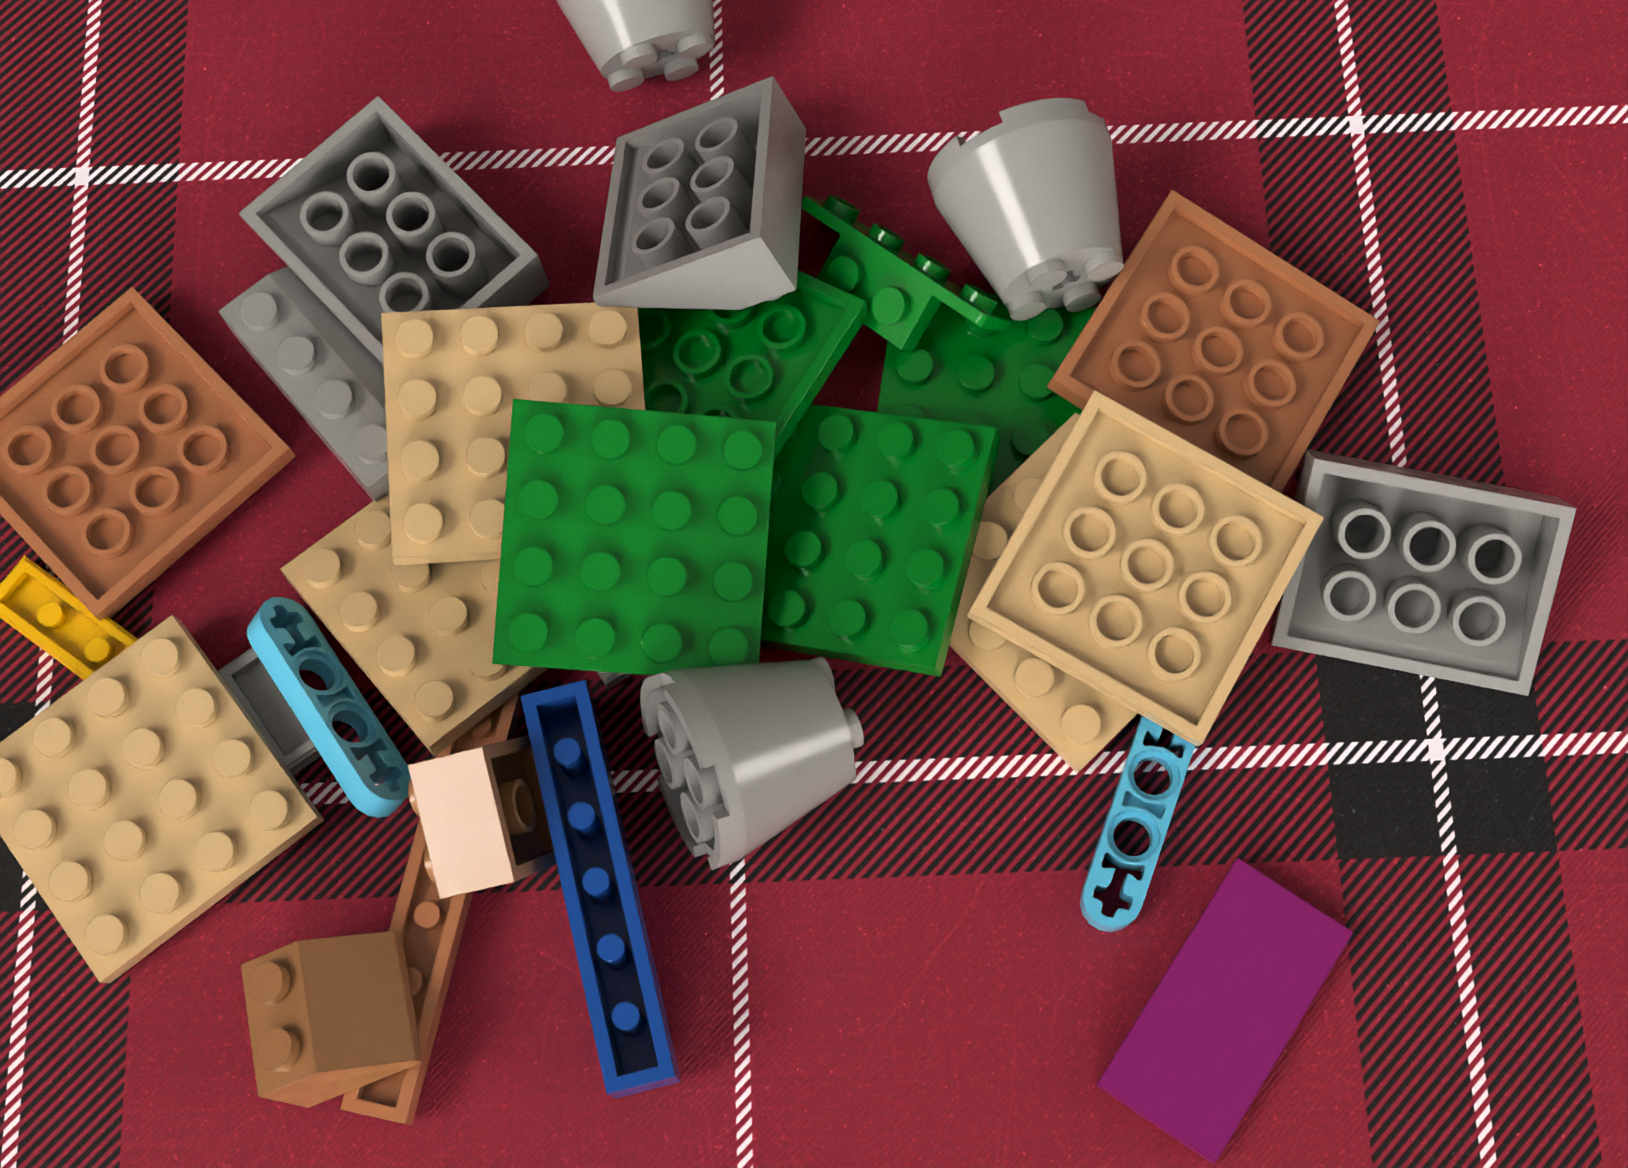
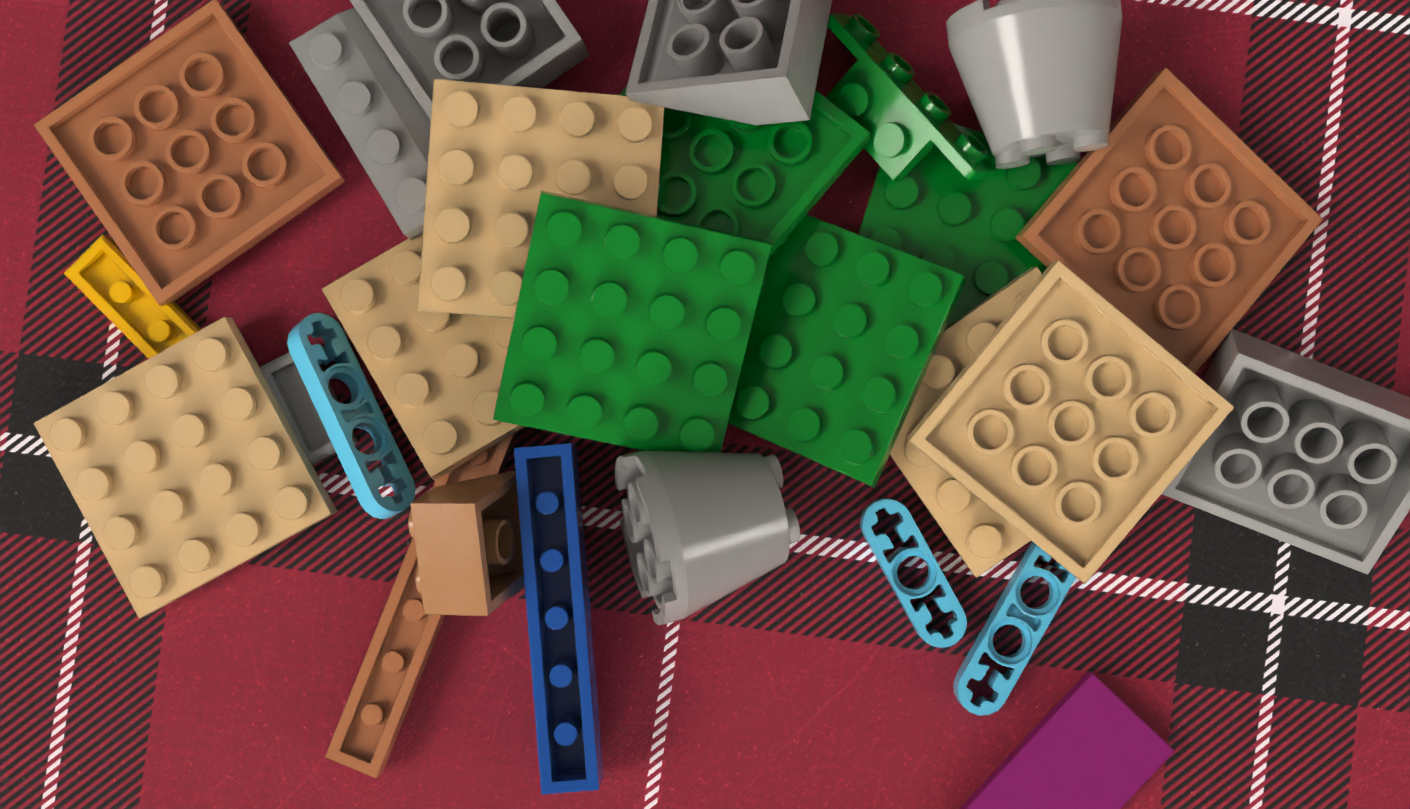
camera: 15 degrees right, 15 degrees up
(330, 1016) = (324, 686): medium nougat slope -> none
(963, 751) = (920, 614): none -> medium azure beam

